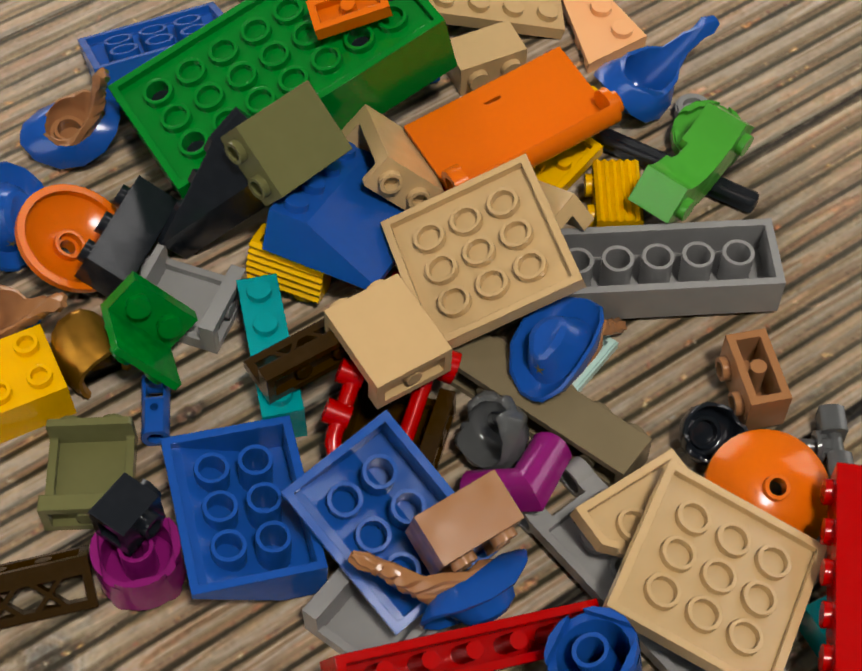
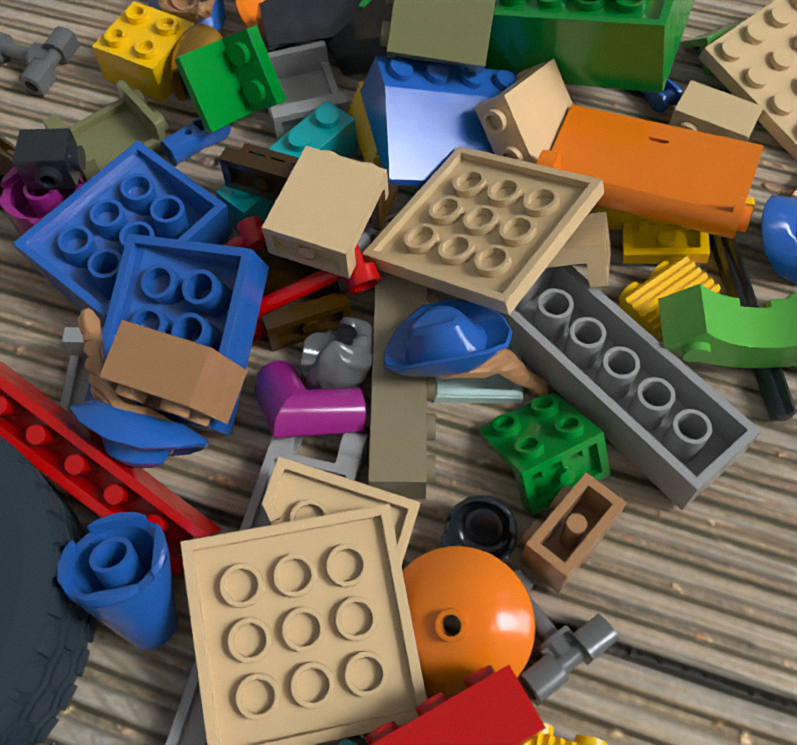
camera: 55 degrees right, 5 degrees up
(671, 350) = (547, 448): none -> green bracket

